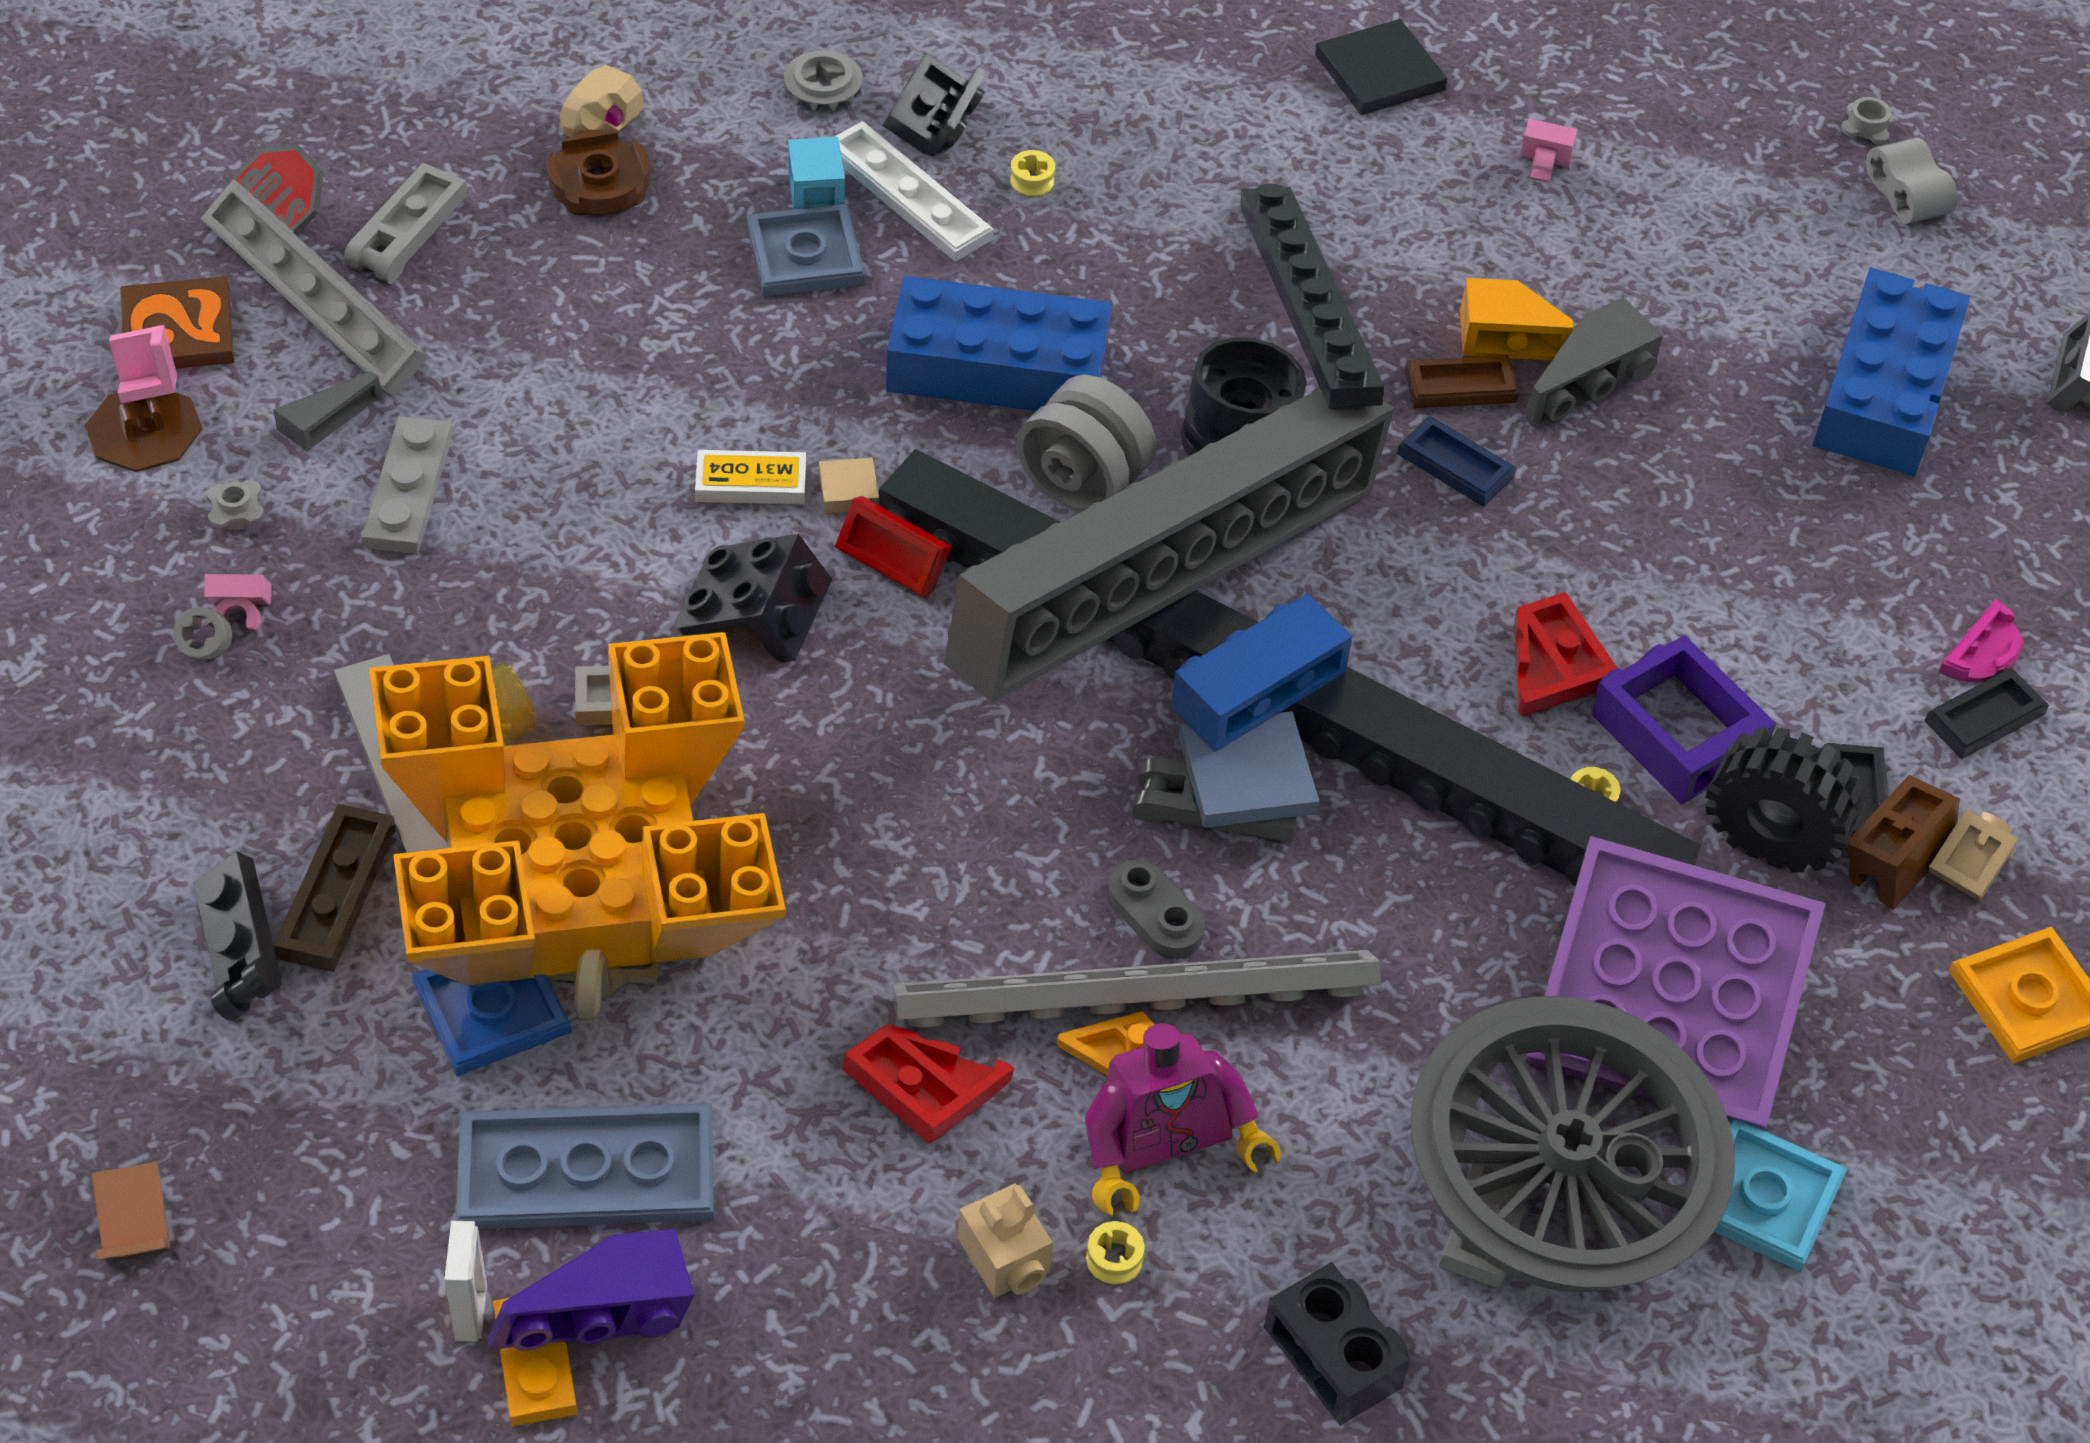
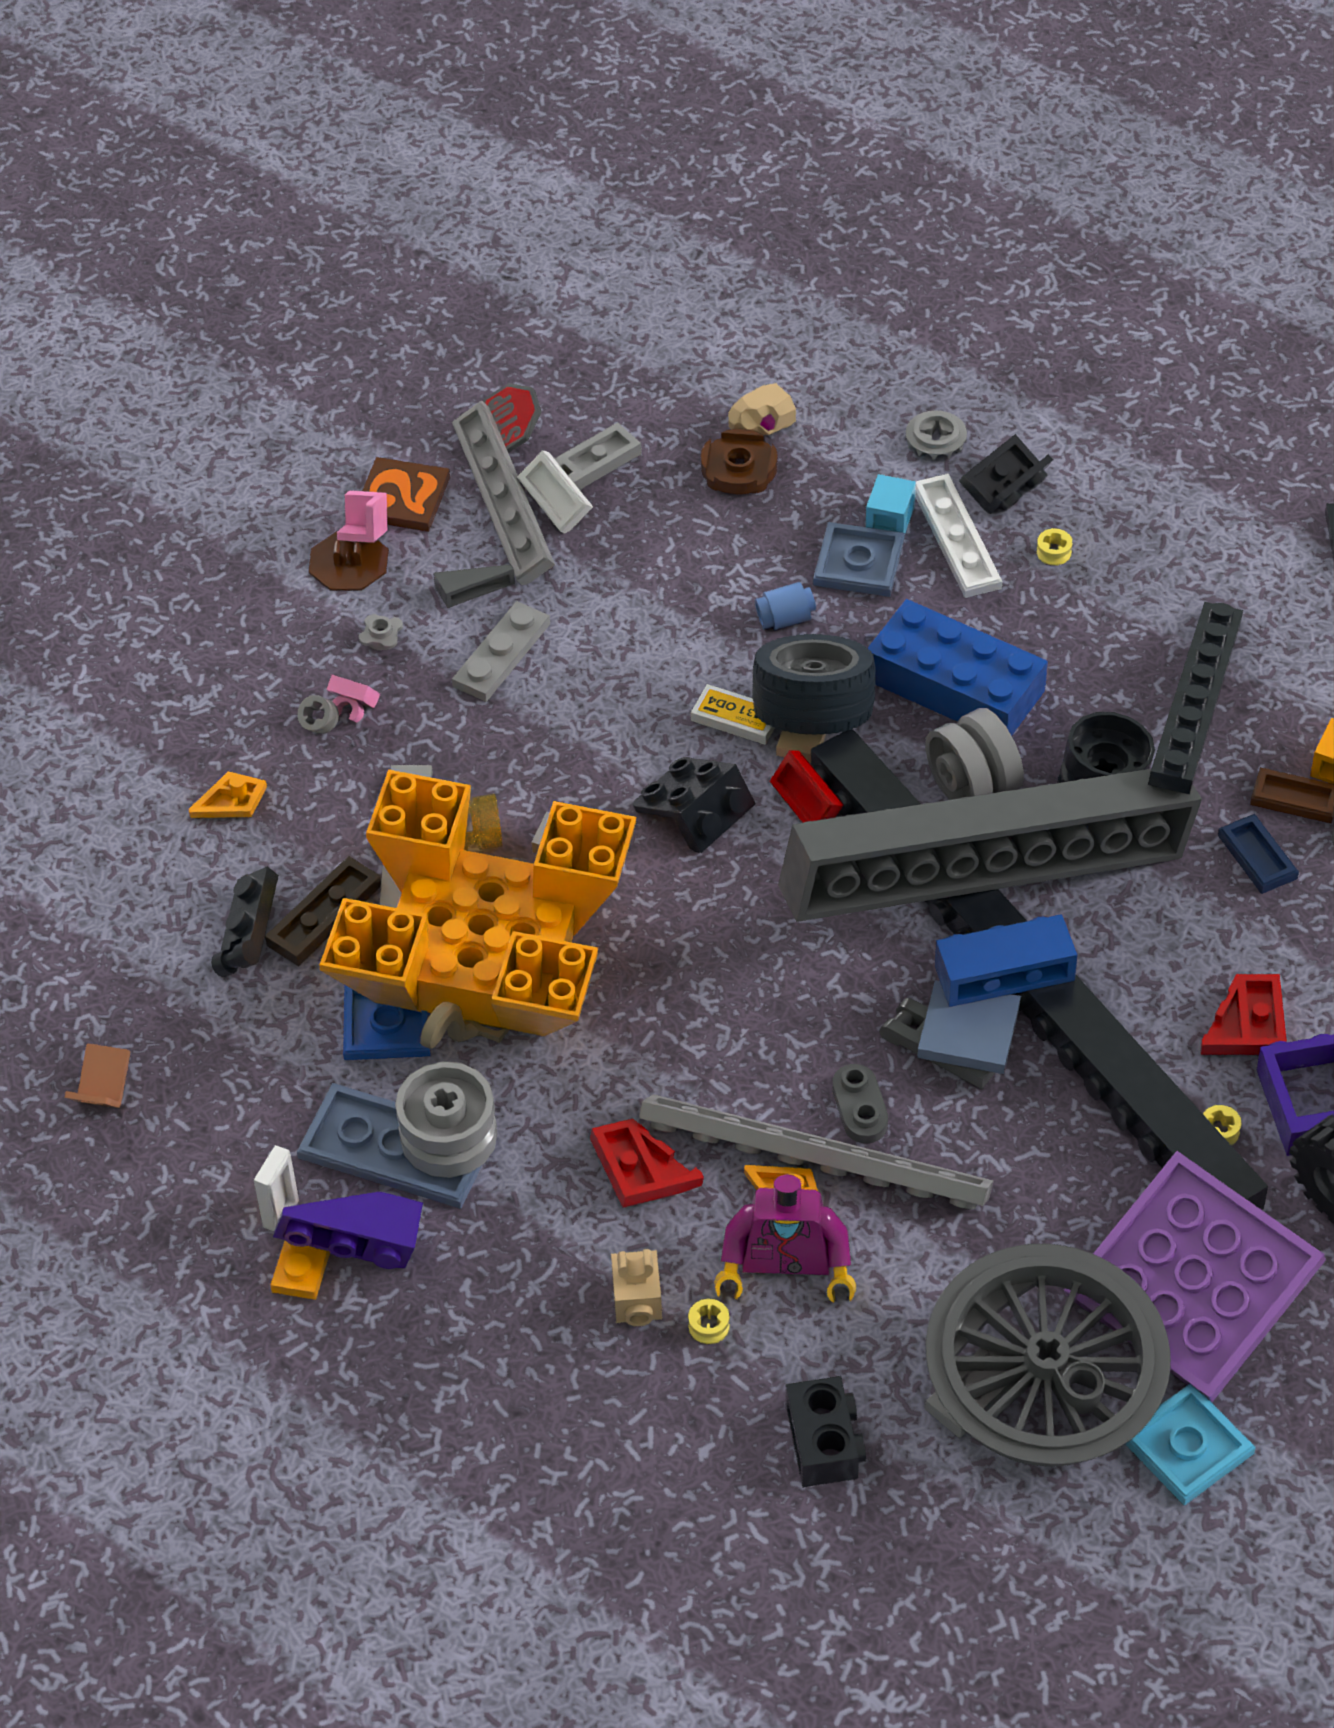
camera: 30 degrees right, 0 degrees up
(129, 778) = (230, 797): none -> light orange piece
(384, 267) = (554, 492): none -> white tile
(653, 1106) = (446, 1119): none -> light grey wheel
(747, 329) = (785, 606): none -> medium blue brick
(844, 408) = (813, 684): none -> black wheel

